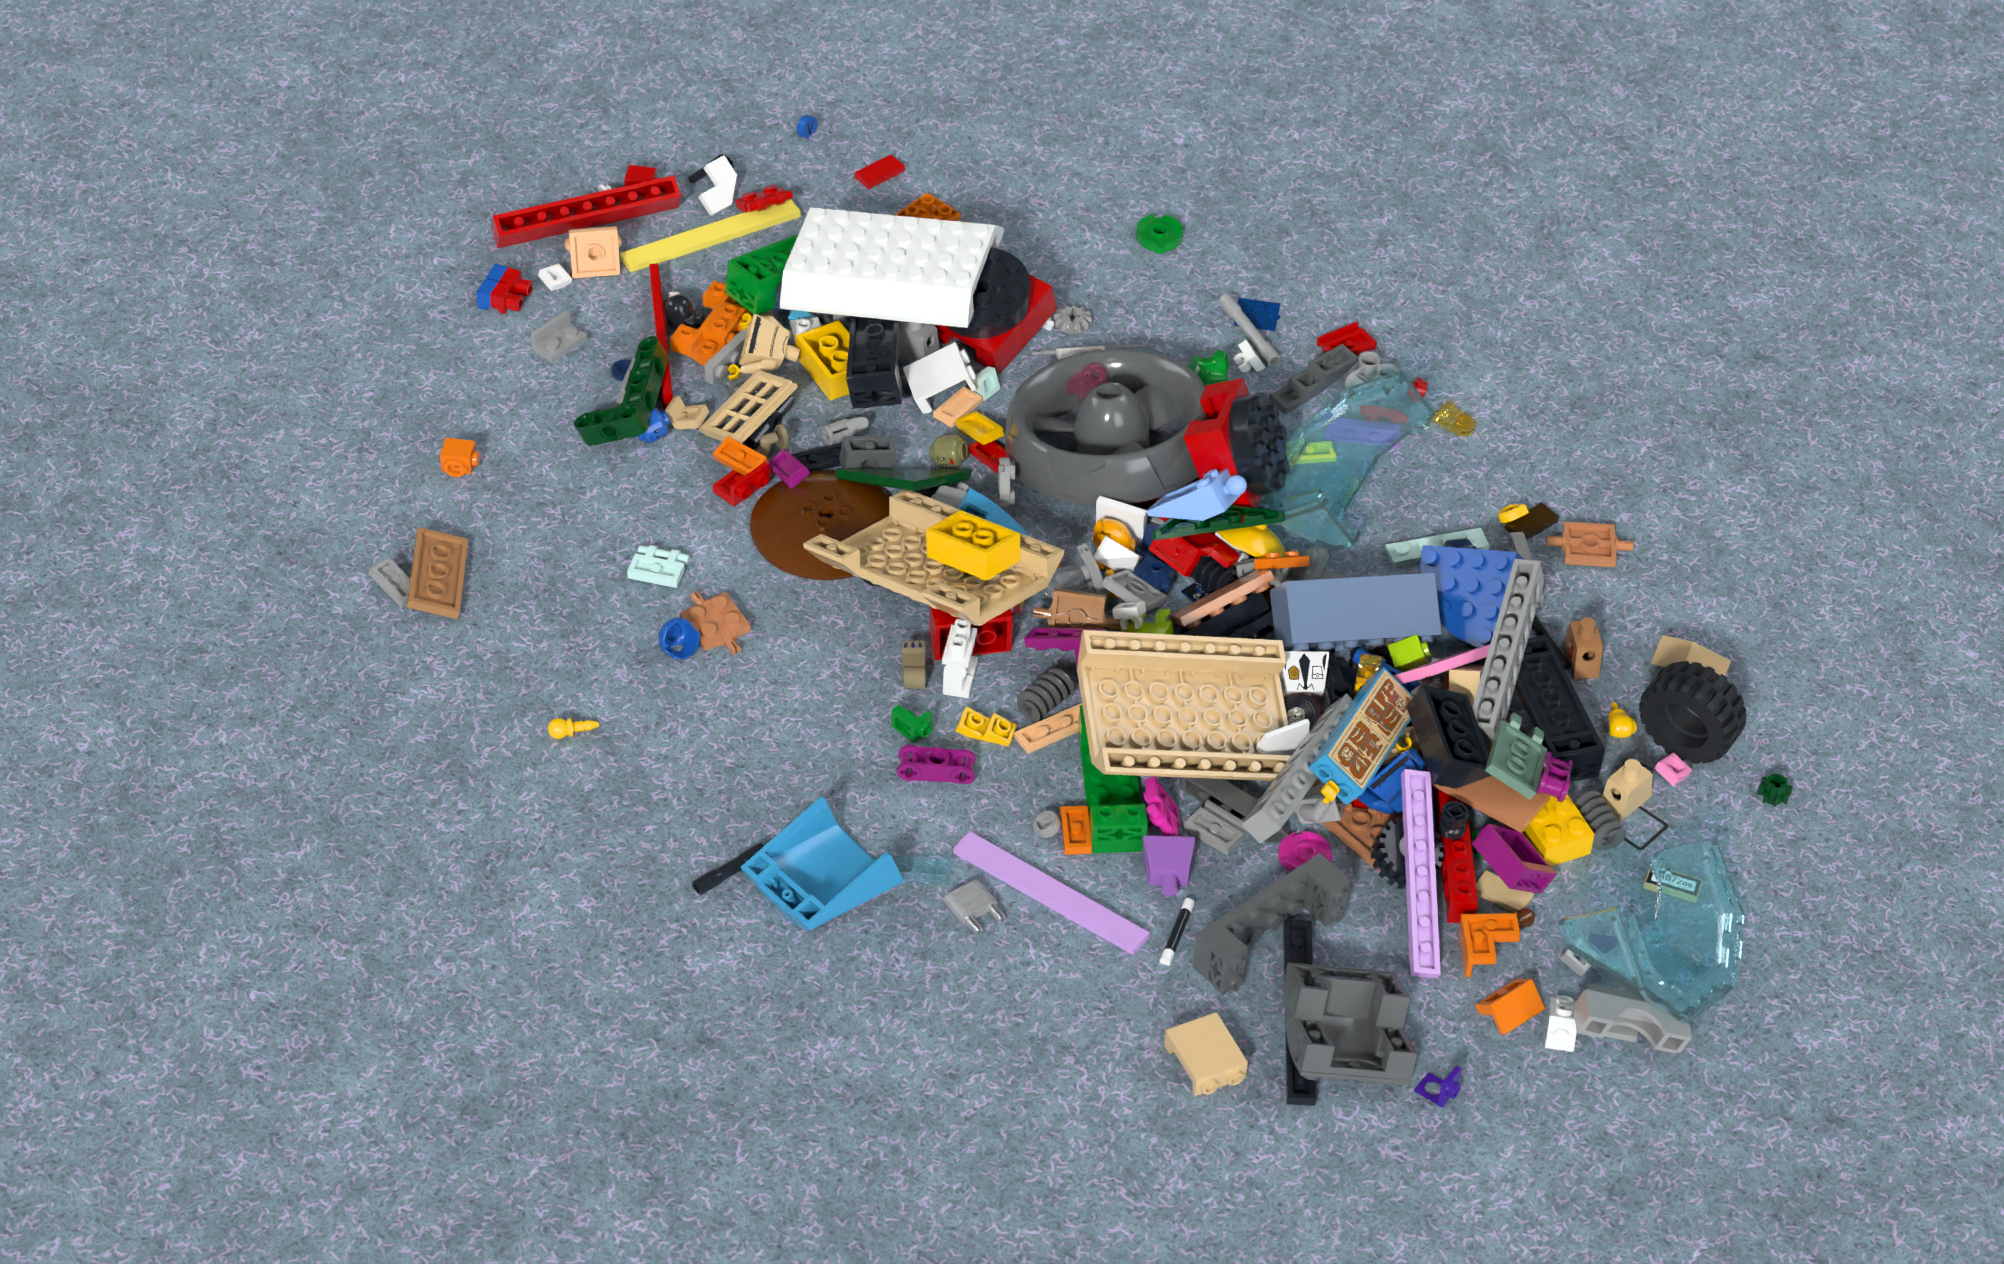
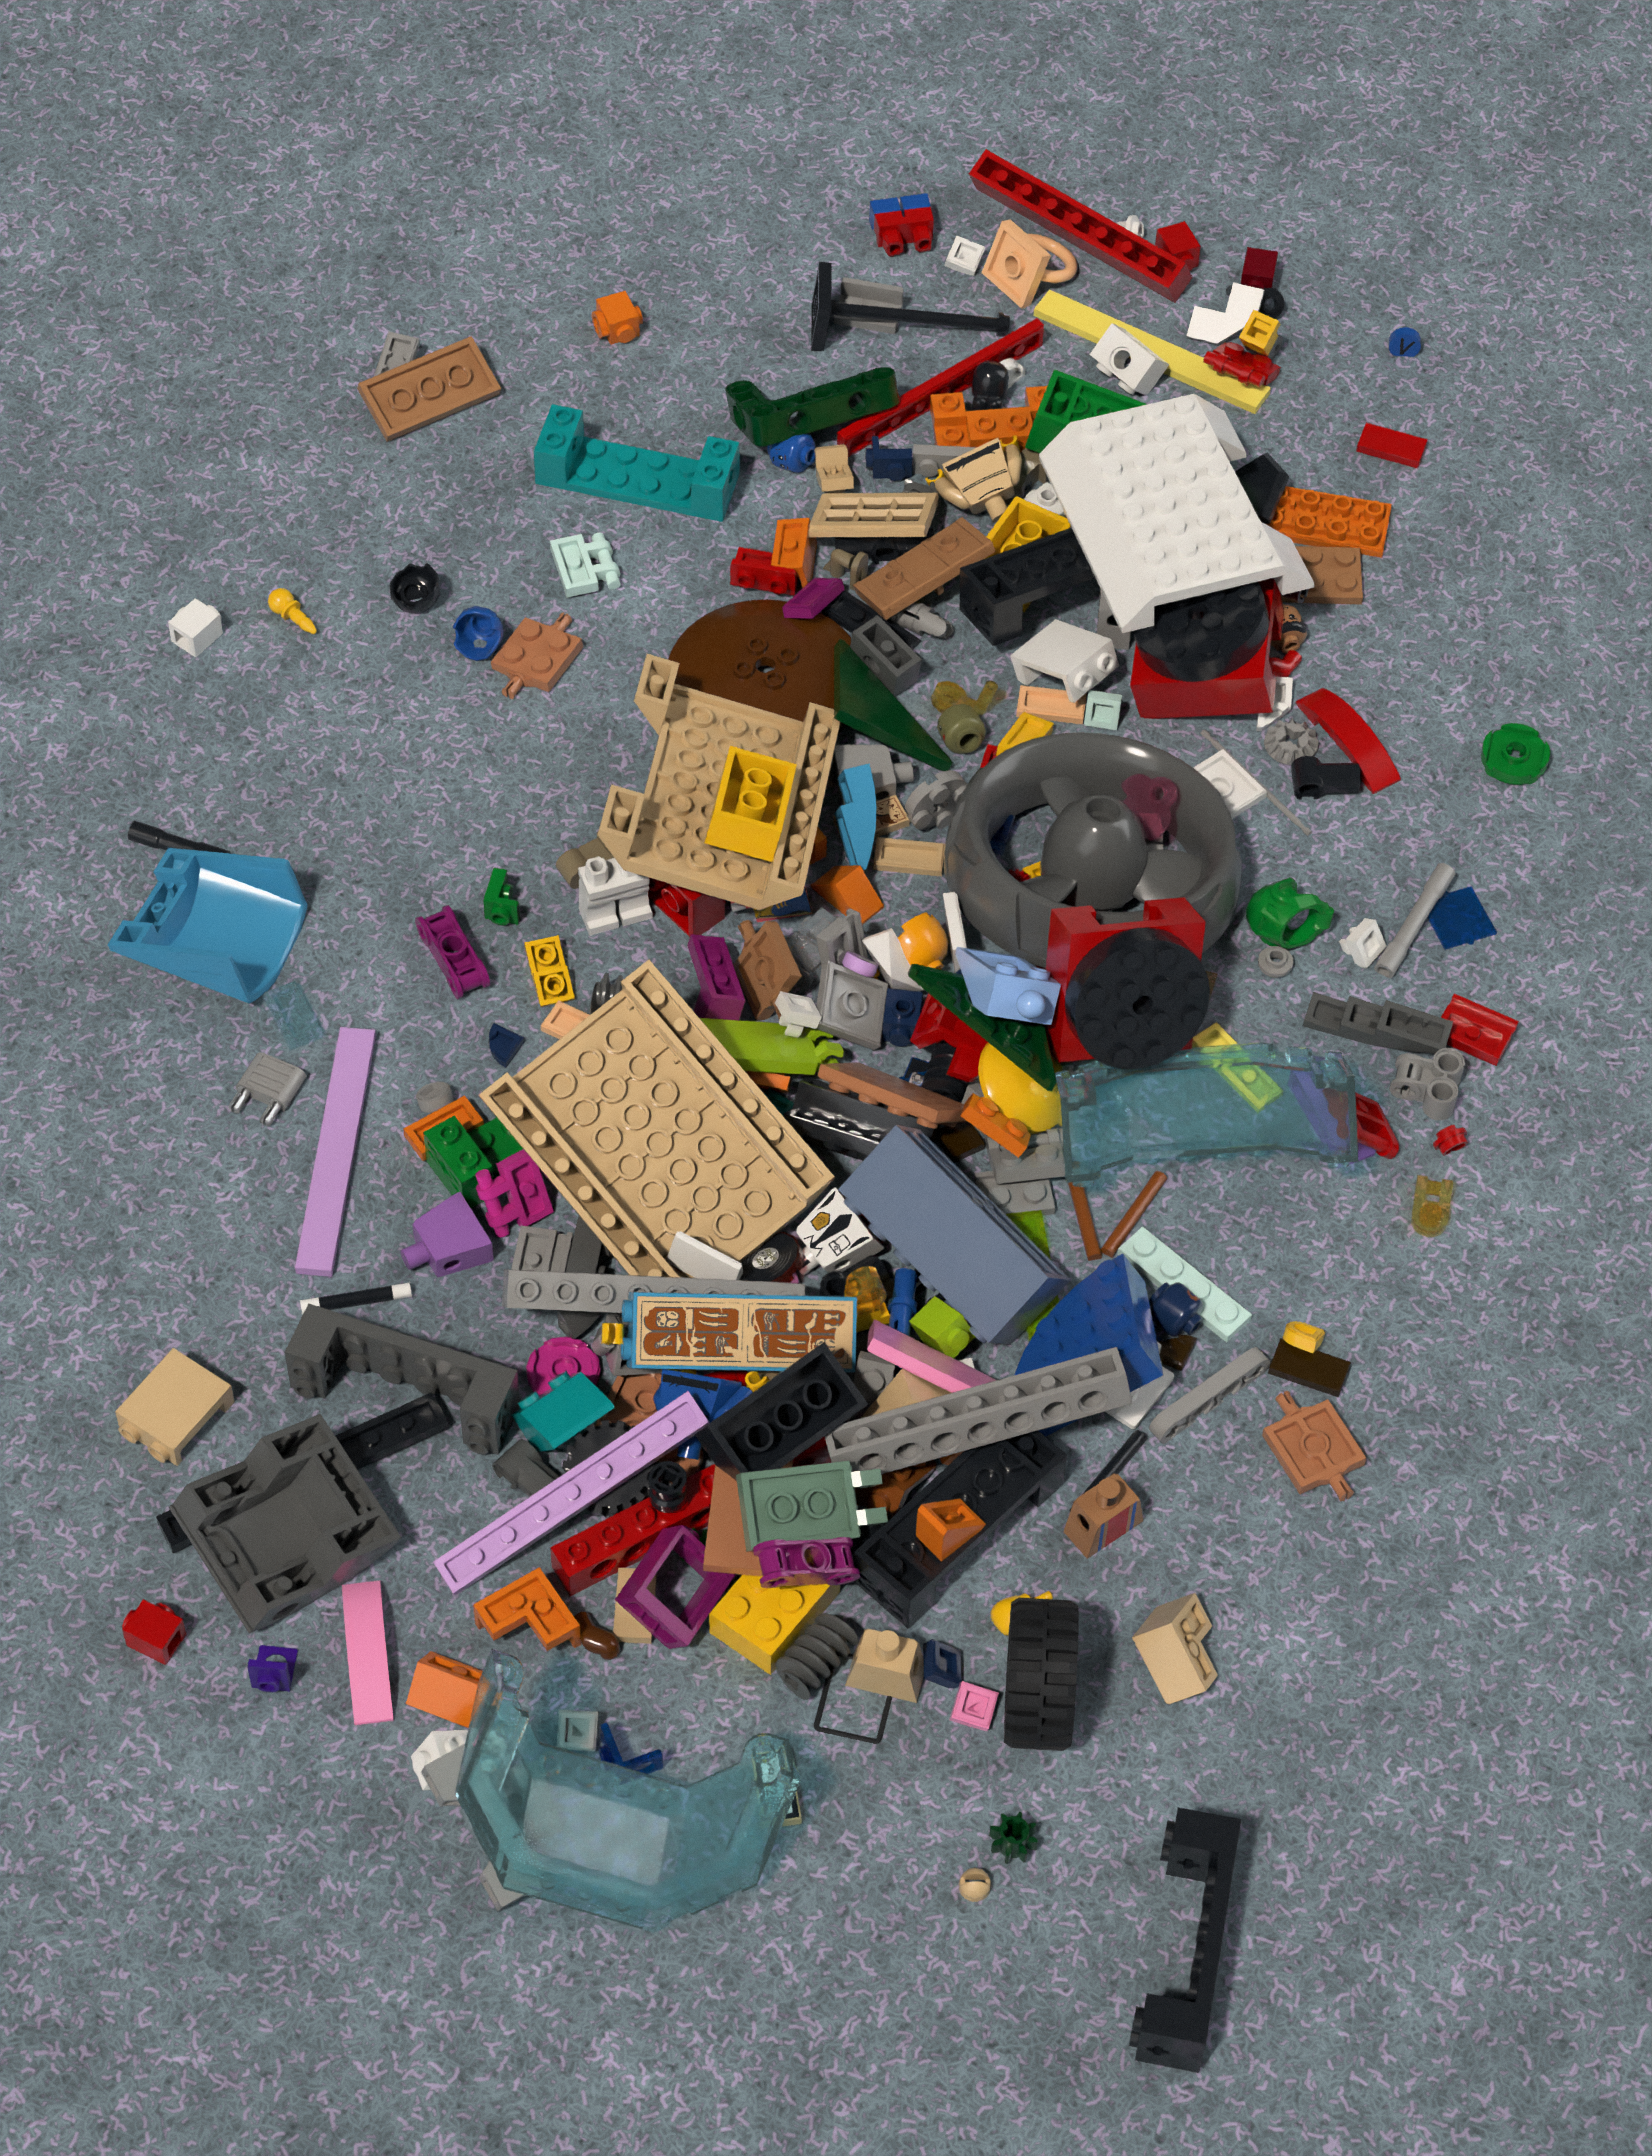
camera: 60 degrees right, 10 degrees up
(545, 780) = (195, 627): none -> white brick
(553, 353) = (825, 308): none -> black tile
(609, 647) = (415, 583): none -> black hair
(644, 480) = (635, 474): none -> teal plate
(692, 156) = (1259, 268): none -> dark red brick
(701, 388) = (888, 463): none -> dark blue bracket
(730, 235) = (1144, 366): none -> white brick
(756, 175) = (1261, 335): none -> yellow leg
(815, 404) = (924, 568): none -> medium nougat container
(920, 447) = (950, 694): none -> clear yellow plate
(1027, 774) = (504, 1044): none -> dark blue tile
(1032, 517) = (909, 856): none -> tan tile
(1094, 289) = (1352, 737): none -> red slope
(1111, 569) = (860, 964): none -> lavender tile
(1114, 318) = (1315, 778): none -> black piece
(1355, 567) = (1085, 1222): none -> dark orange bar
(1355, 852) = (560, 1411): none -> teal slope
(1371, 547) = (1133, 1214): none -> dark orange bar
(1372, 901) = (524, 1468): none -> dark grey piece
(1375, 1134) = (153, 1631): none -> red brick
(1457, 1032) = (367, 1653): none -> bright pink slope
(1571, 705) = (946, 1526): none -> orange slope
(1796, 828) = (974, 1890): none -> tan hinge
(1891, 725) = (1172, 2029): none -> black plate

